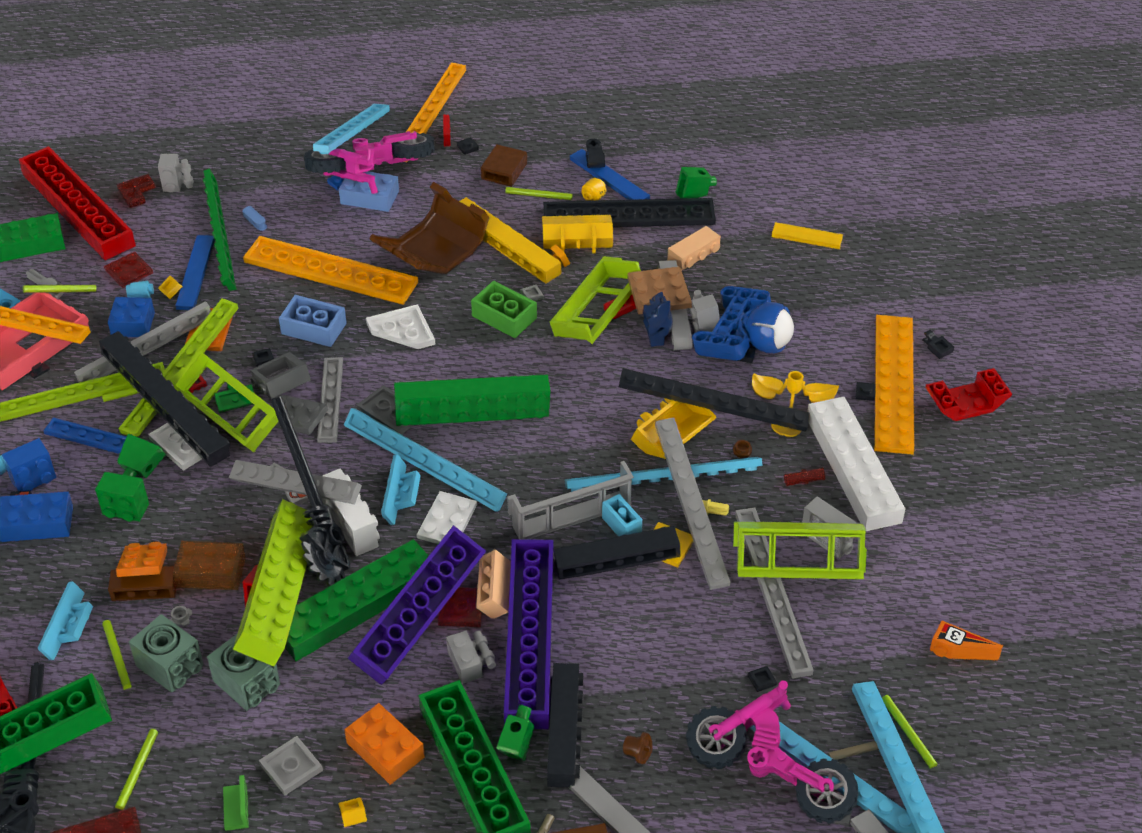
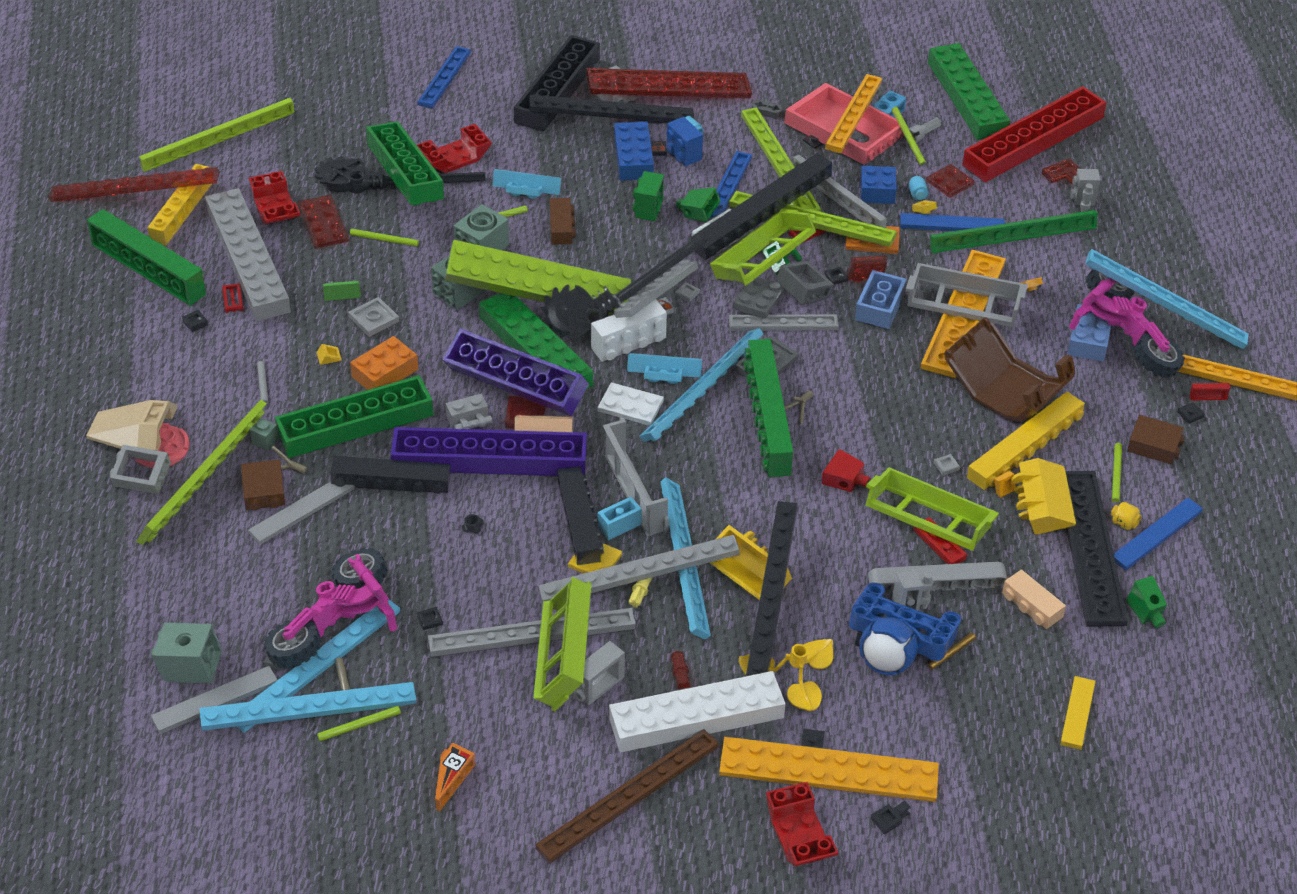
camera: 90 degrees right, 0 degrees up
(142, 559) = (580, 214): orange plate -> none
(181, 611) = (528, 246): light grey plate -> none
(209, 565) = (578, 249): clear orange brick -> none
(254, 218) = (1036, 256): medium blue bar -> none
(270, 325) = (861, 267): none -> clear red plate
(295, 223) = (1033, 283): none -> light orange plate
(320, 224) = (968, 283): none -> light grey piece
(402, 326) = (884, 367): white plate -> none
(504, 309) = (909, 435): bright green brick -> none
(516, 743) = (372, 436): green torso -> none
(547, 357) = (844, 472): none -> red torso
(594, 154) = (1181, 513): black piece -> none
(627, 642) = (475, 520): none -> black plate
(638, 747) = (360, 524): reddish brown piece -> none
(657, 319) = (896, 548): dark blue piece -> none
(666, 280) = (947, 555): medium nougat plate -> none
(742, 449) = (721, 623): reddish brown plate -> none
(958, 515) = (626, 796): none -> reddish brown plate

